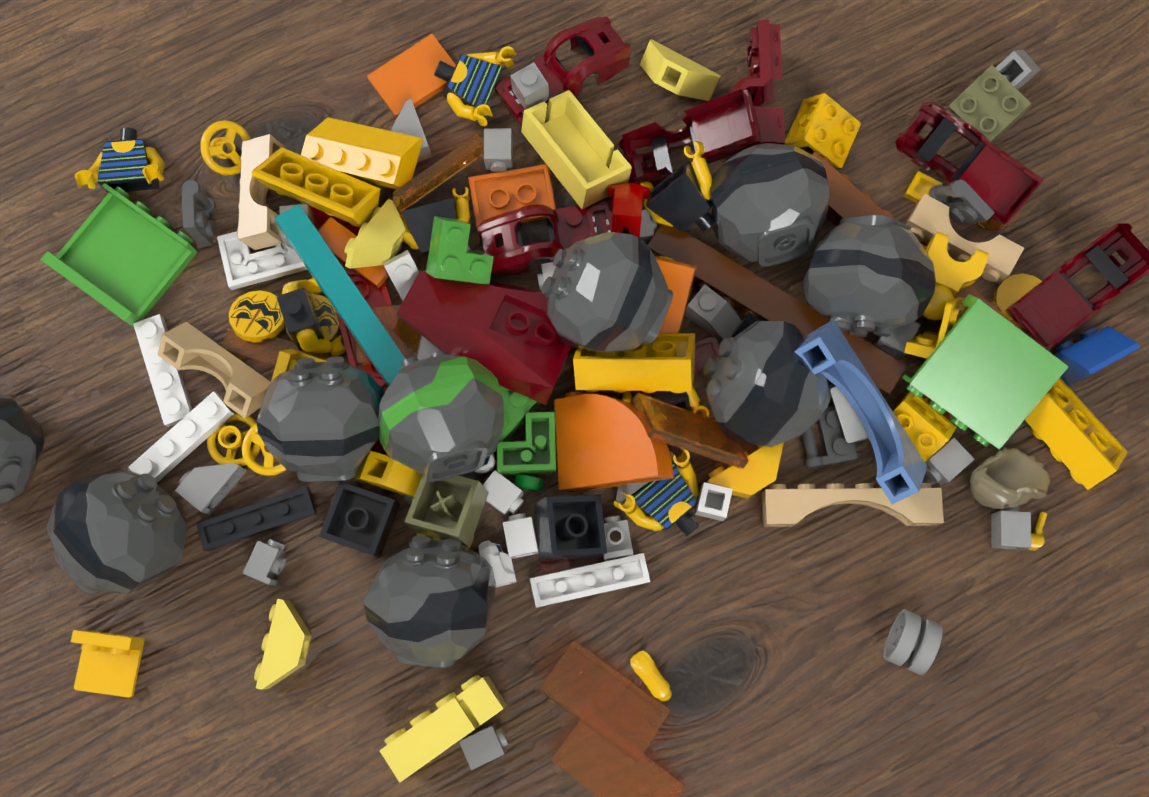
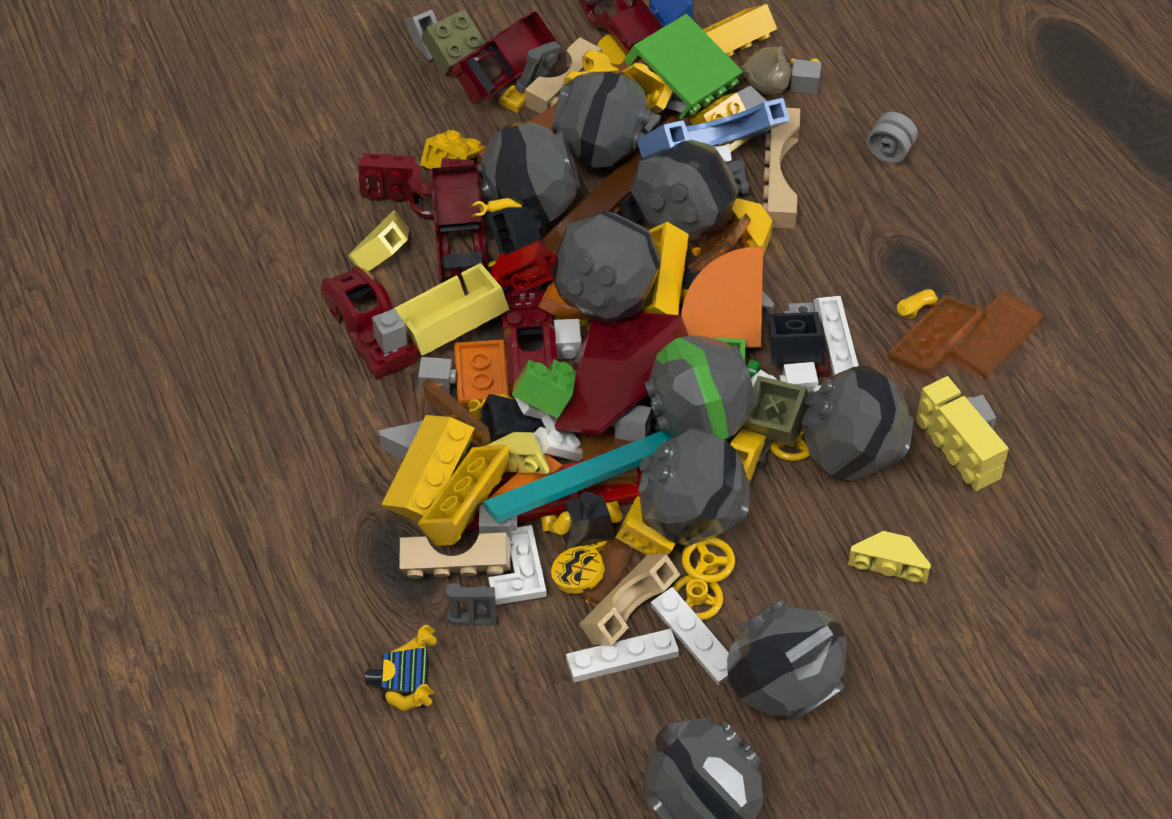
camera: 90 degrees left, 25 degrees down
(108, 662) = (905, 698): yellow bracket -> none
(123, 256) = (499, 687): bright green panel -> none
(209, 485) = (738, 606): light grey slope -> none
(216, 146) = (400, 589): yellow piece -> none
(256, 518) = (771, 567): black plate -> none
(266, 562) = (815, 568): light grey brick -> none
(359, 519) = (780, 489): black brick -> none
(411, 75) = (346, 440): orange tile -> none
(473, 82) = (369, 387): torso -> none
(667, 500) = (780, 280): torso -> none
(713, 501) = (776, 246): white brick -> none

